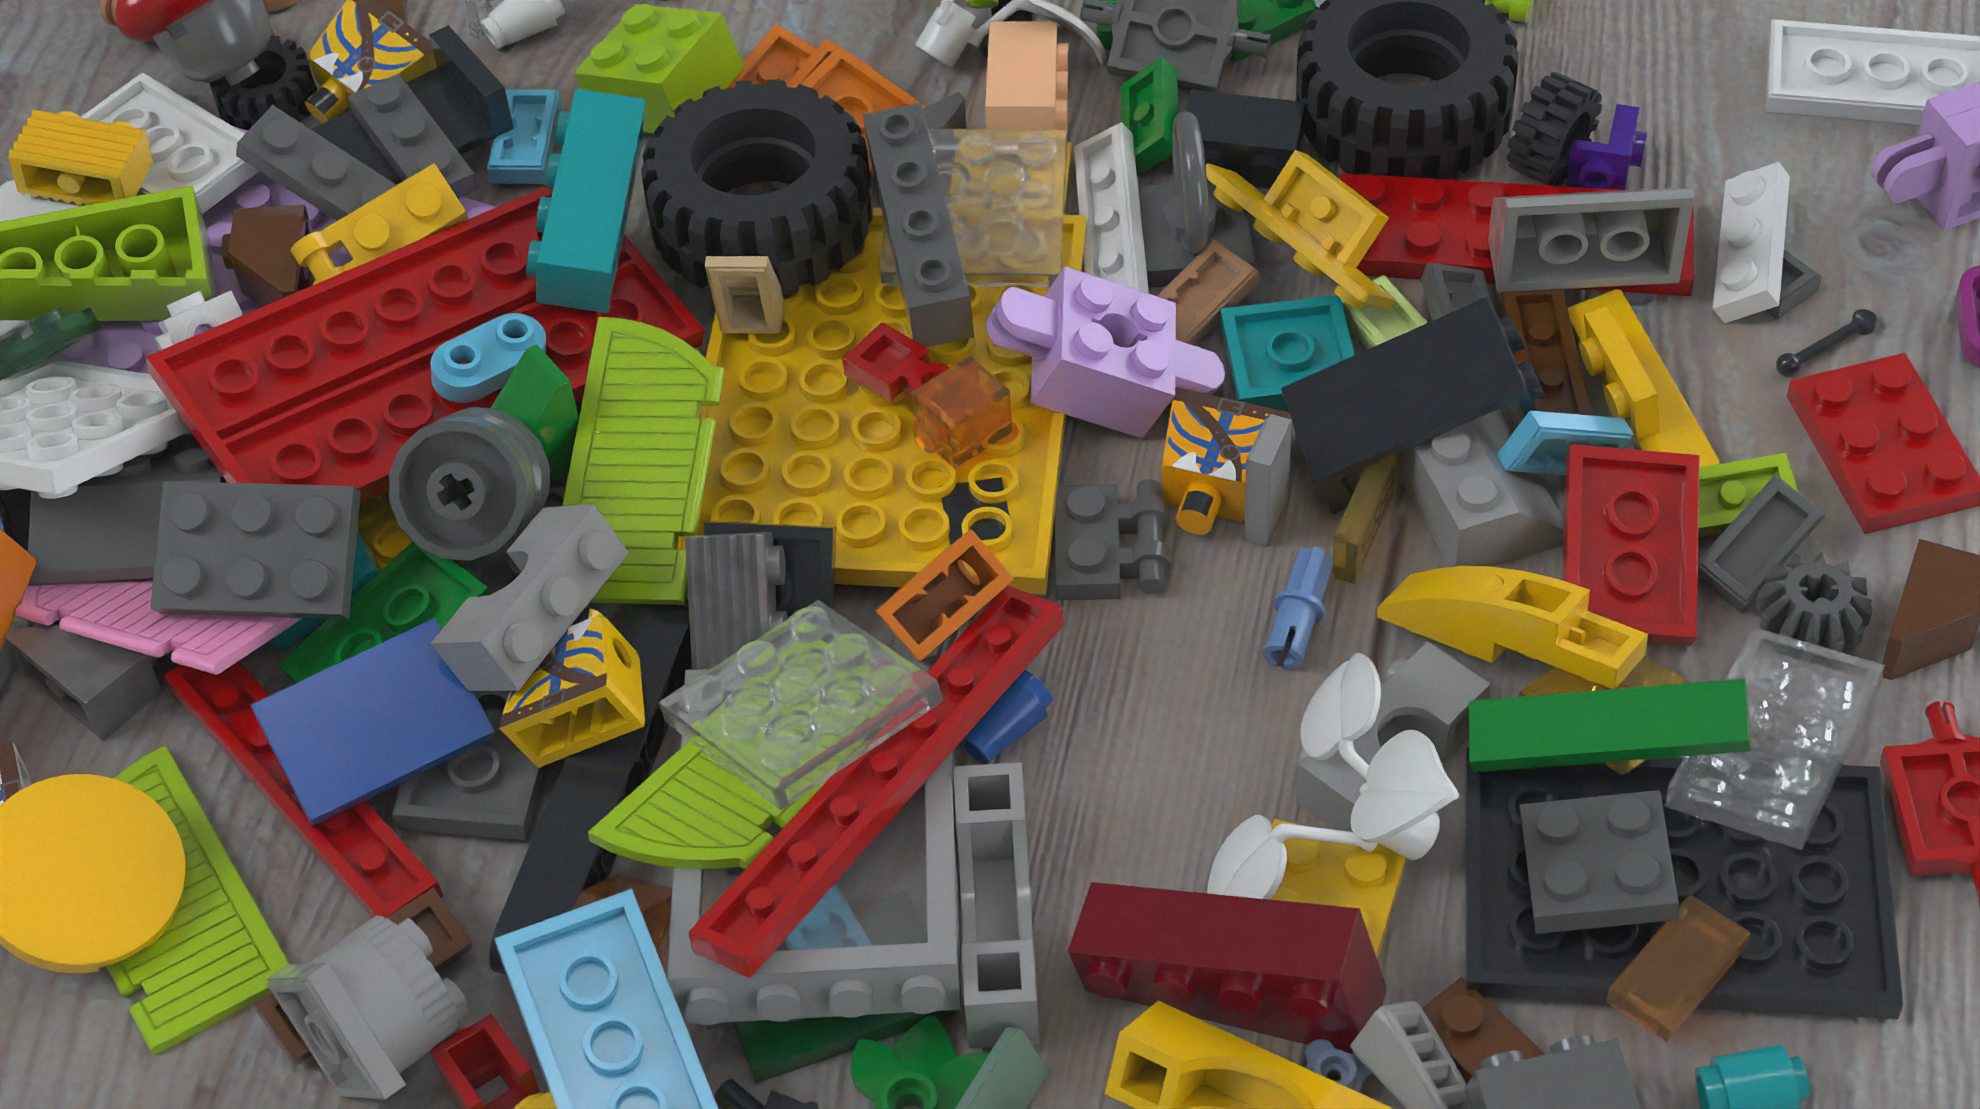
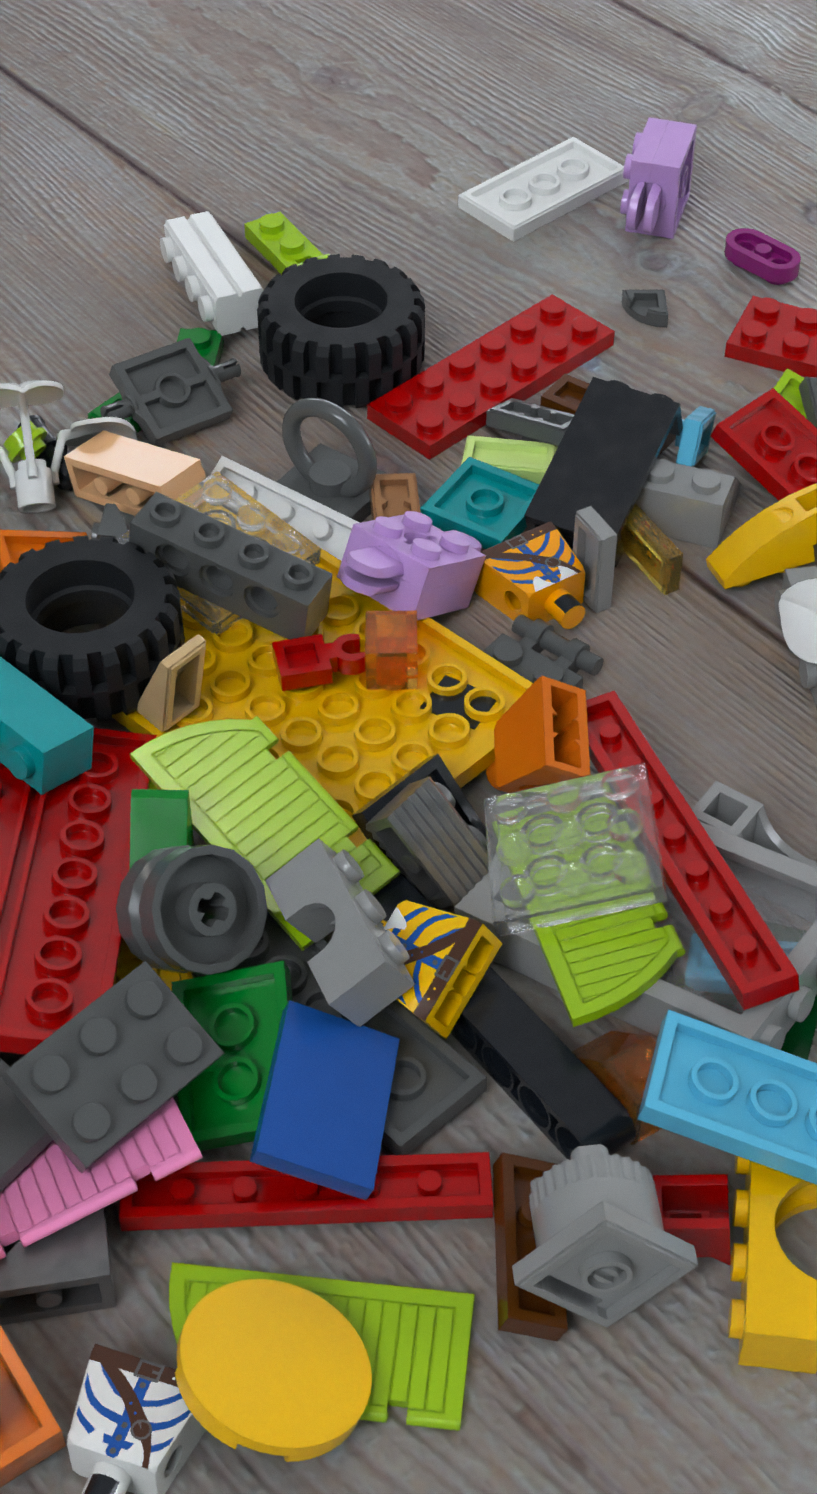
camera: 55 degrees left, 5 degrees down
(491, 353) = (73, 842): medium azure plate -> none
(1148, 112) = (211, 438): green plate -> none
(1248, 133) = (263, 423): black brick -> none
(1299, 607) = (685, 615): medium blue axle -> none
(1317, 218) = (411, 422): yellow bracket -> none
(1550, 123) = (455, 303): black tyre -> none
(1589, 239) = (562, 332): light grey slope -> none
(1608, 164) = (488, 299): dark purple bracket -> none
(1636, 378) = (680, 384): yellow bracket -> none
(1751, 243) = (614, 295): white plate -> none
(1862, 322) = (707, 300): black hinge -> none

